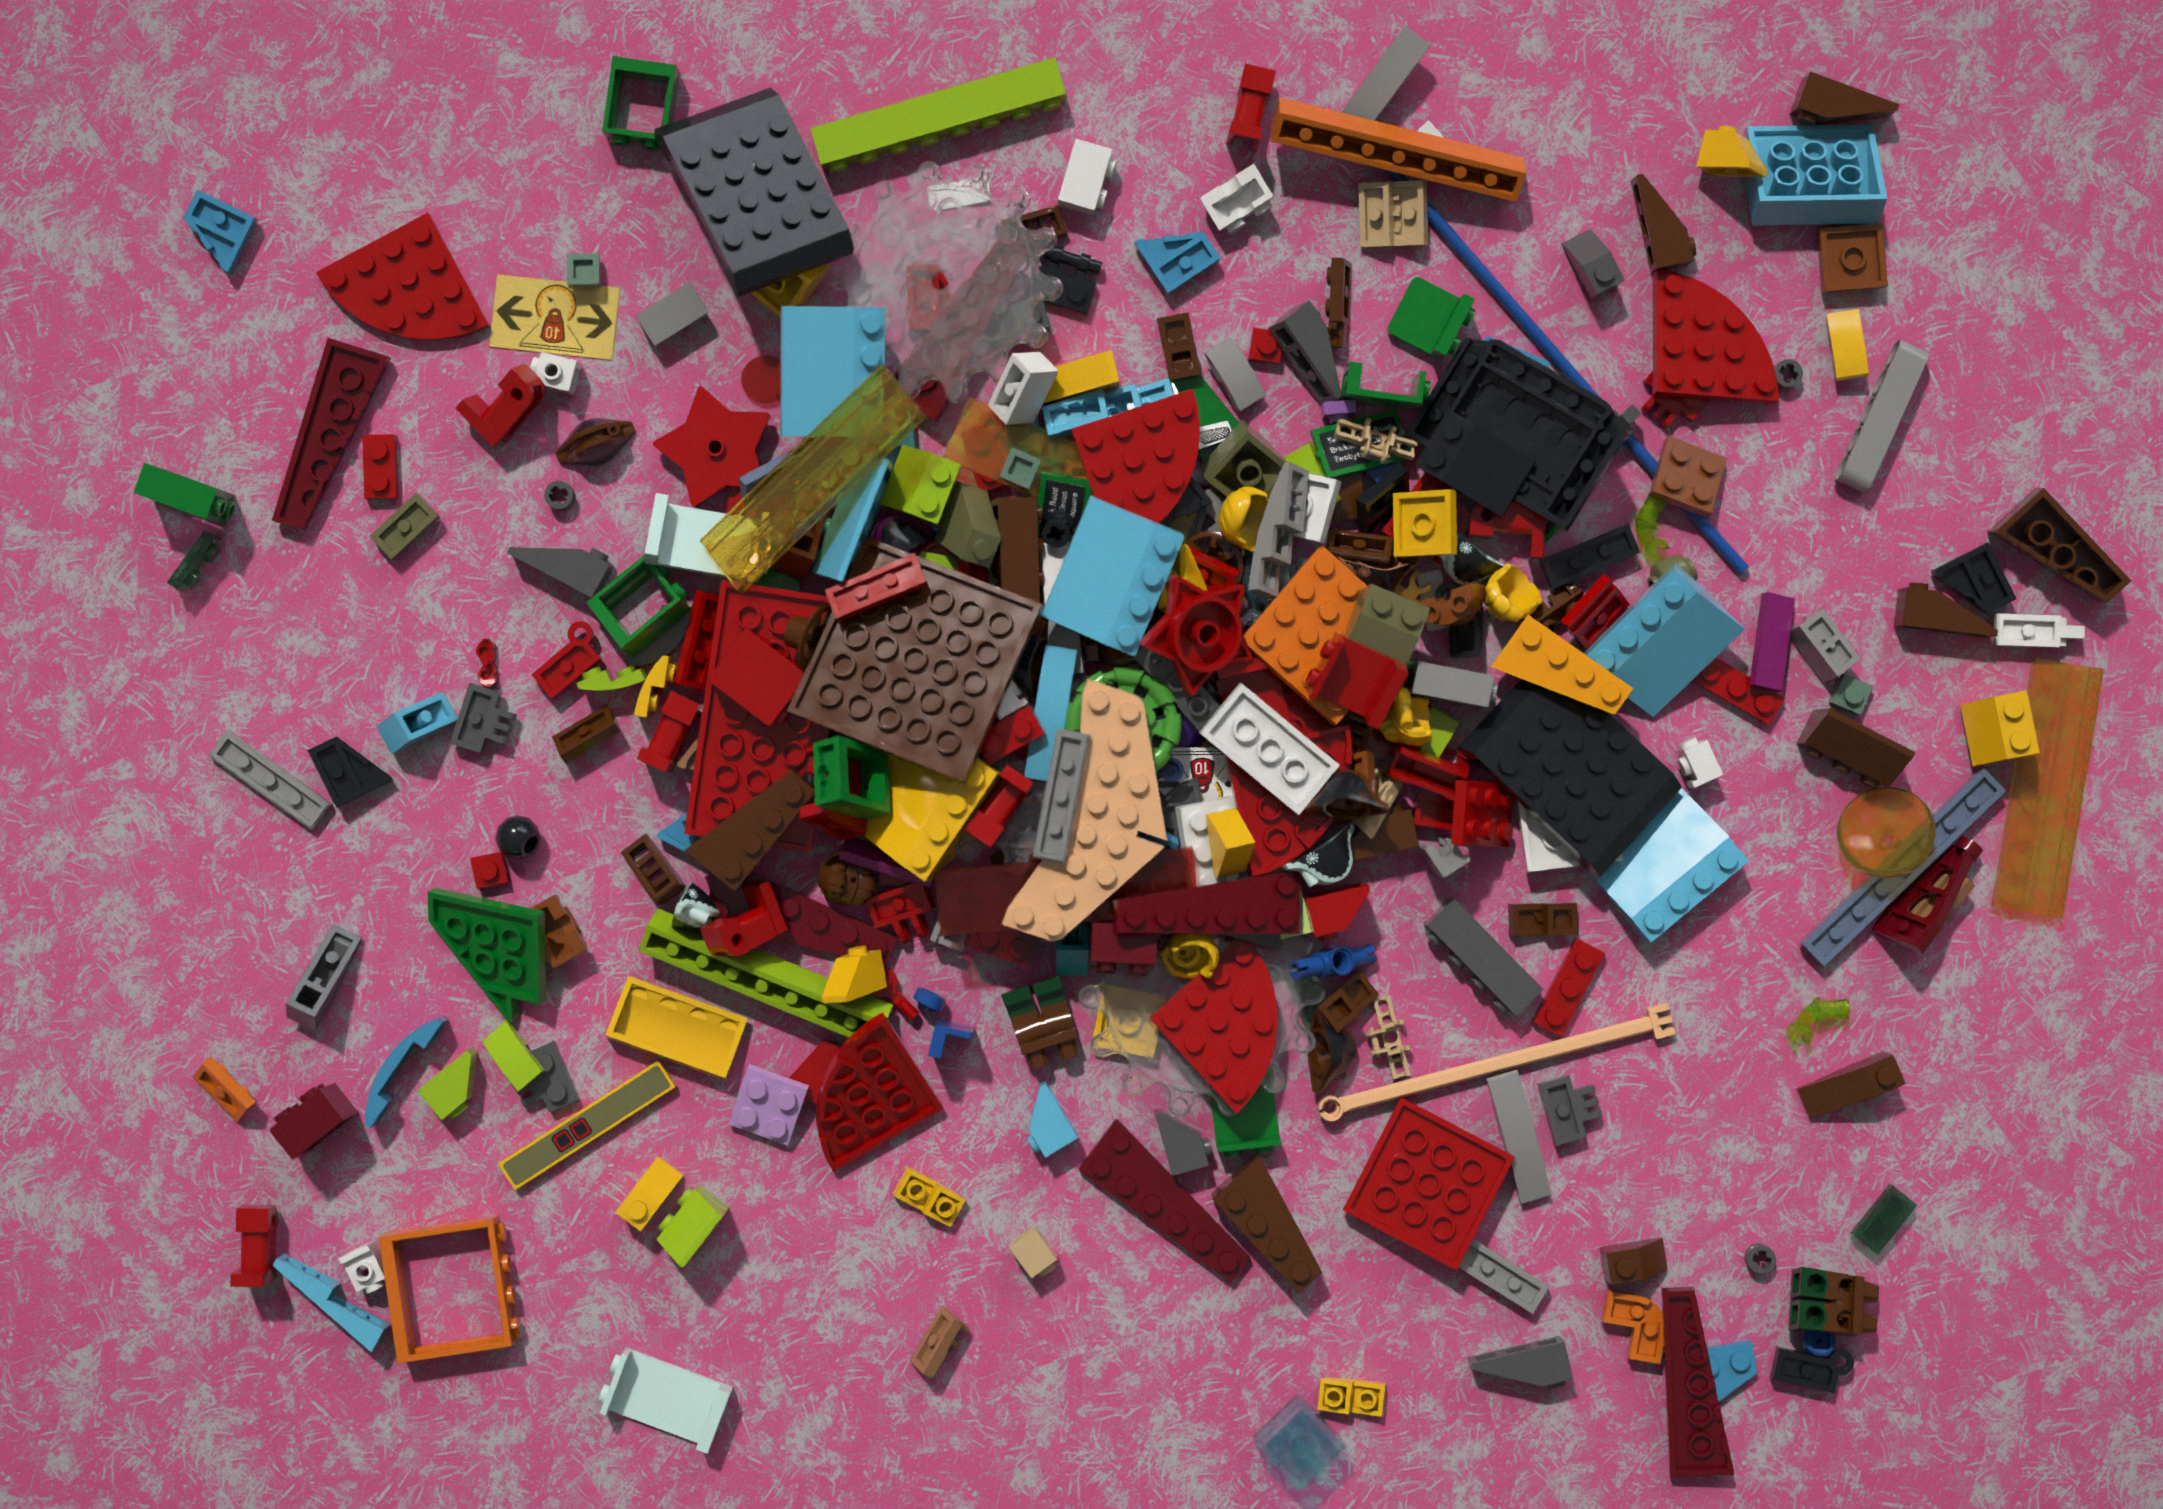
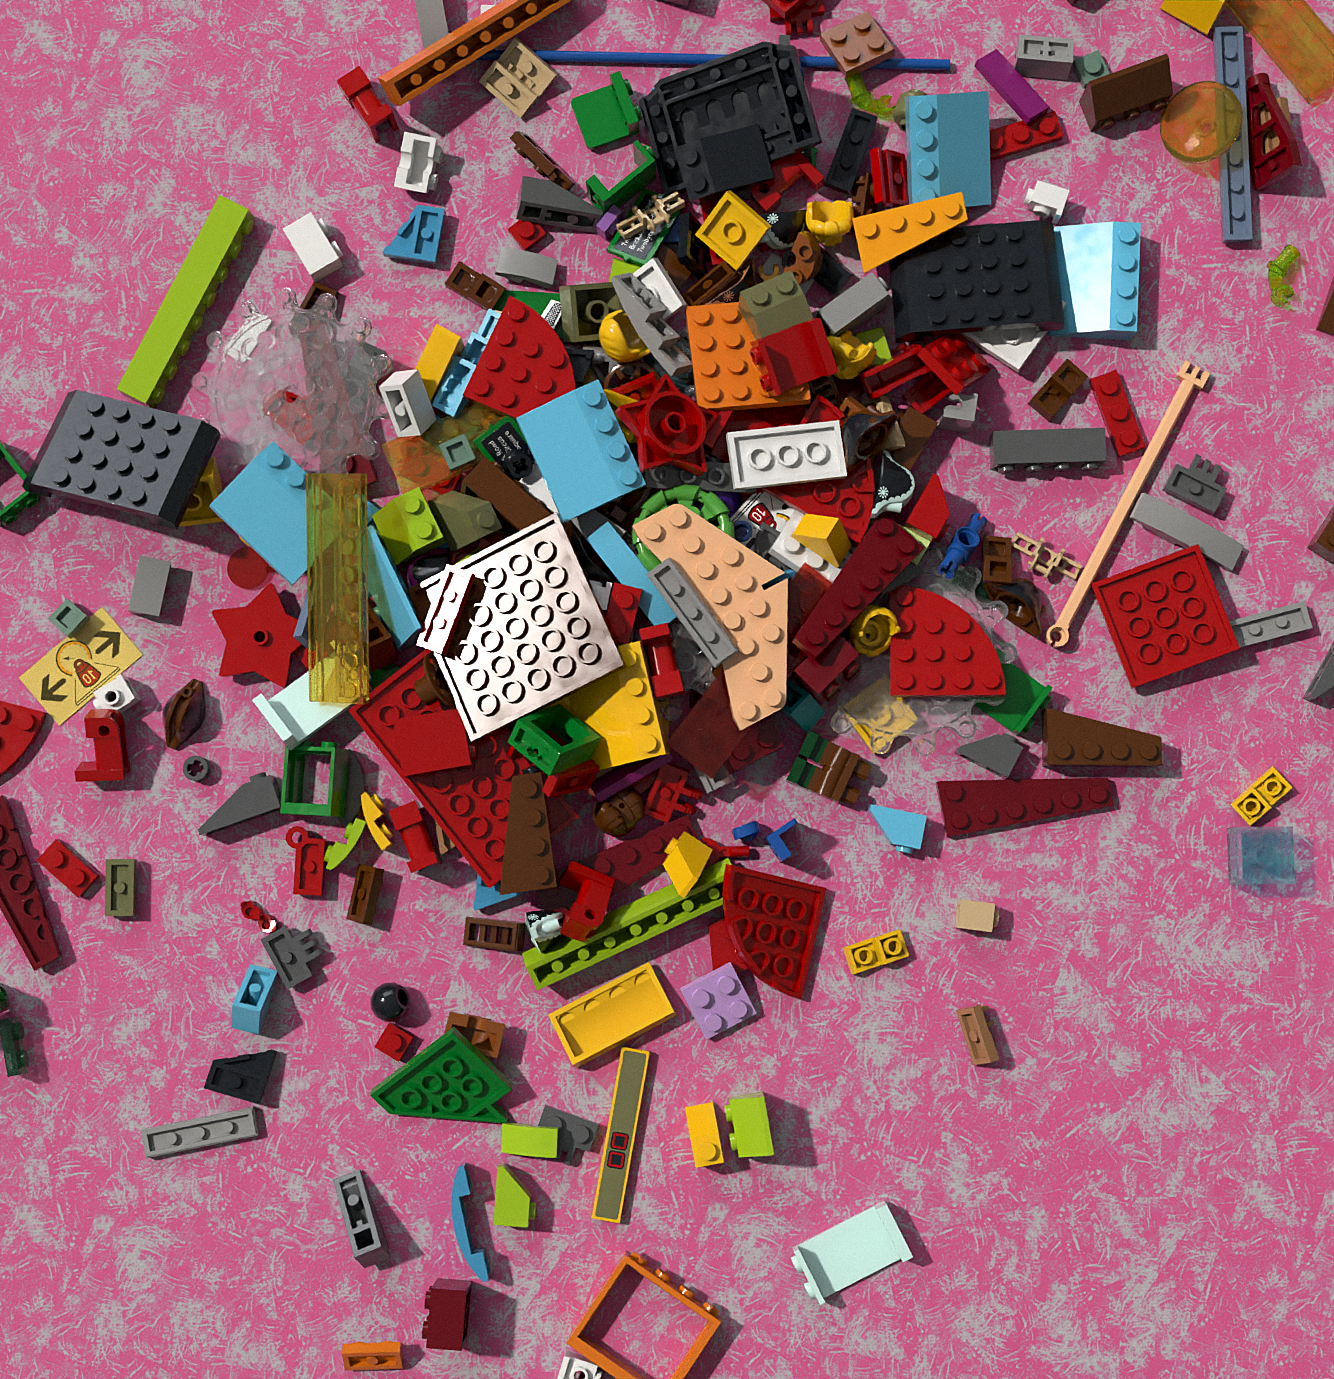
camera: 45 degrees left, 5 degrees down
(697, 643) = (374, 765): red plate -> none
(1076, 290) = (381, 317): black plate -> none

